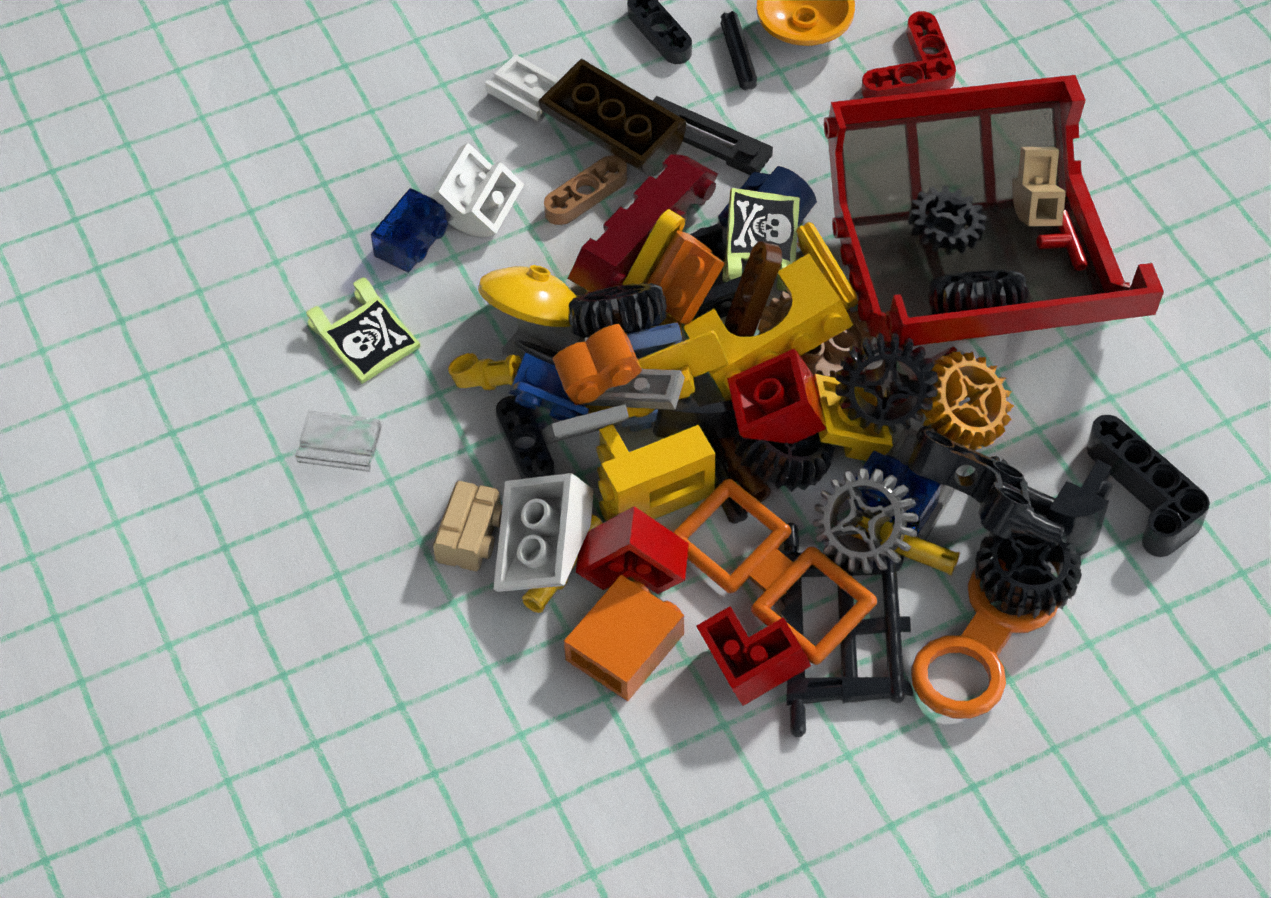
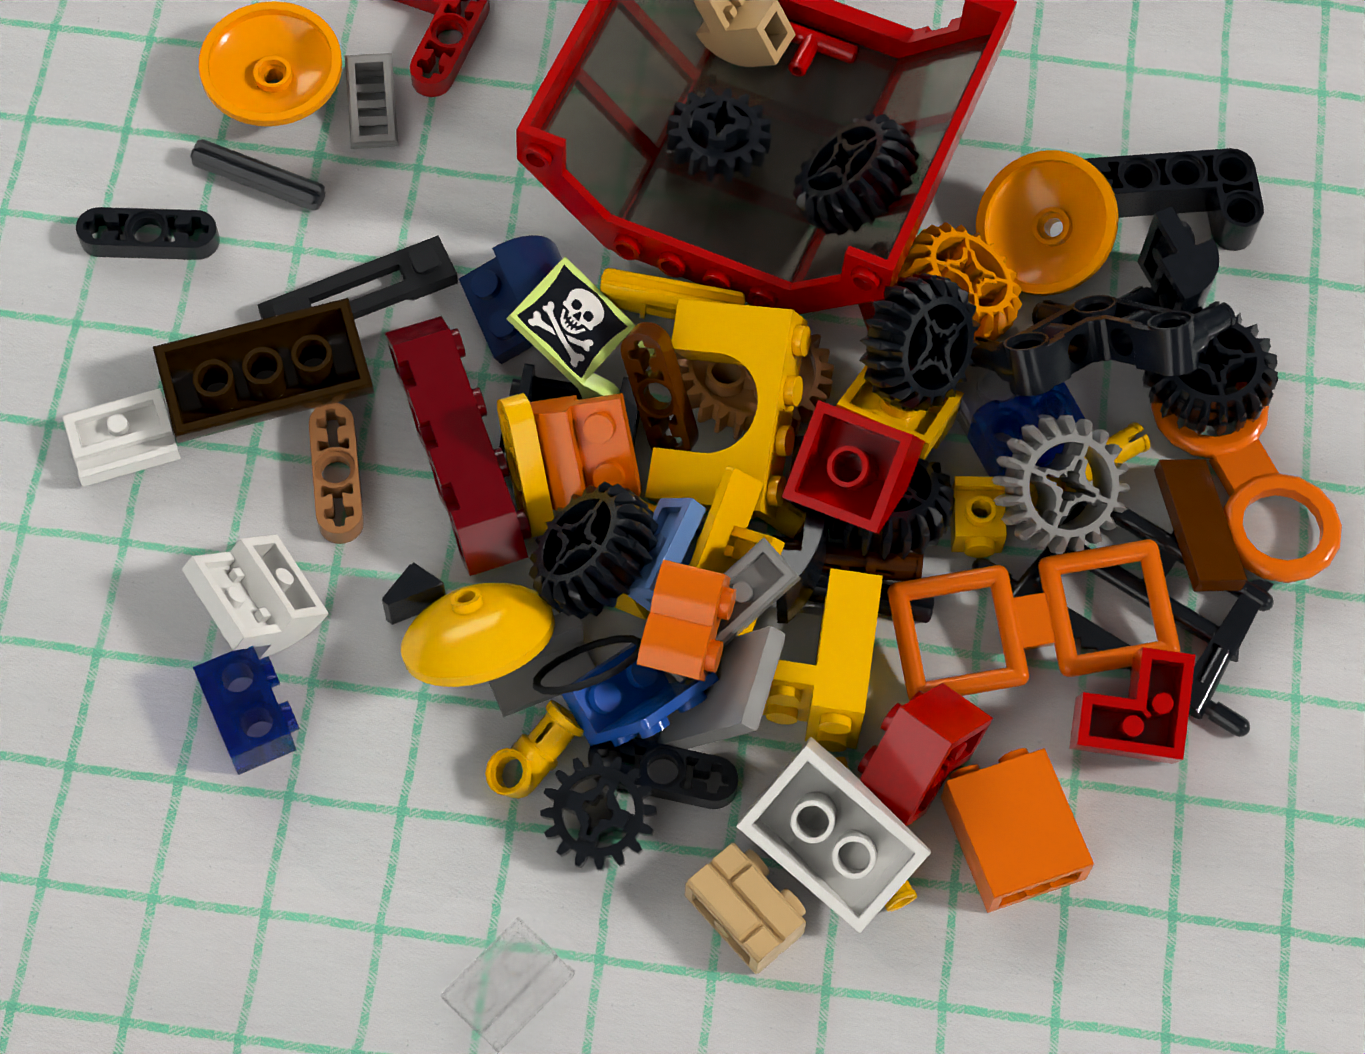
camera: 60 degrees left, 10 degrees up
(367, 337) = (366, 857): flag -> none
(471, 421) = (576, 803): none -> black gear
(534, 255) = (411, 594): none -> black slope
(803, 504) = (972, 534): none -> yellow brick
(840, 50) = (371, 66): none -> light grey slope
(916, 625) = (1200, 525): none -> reddish brown tile
(1054, 423) = (1032, 197): none -> light orange dish

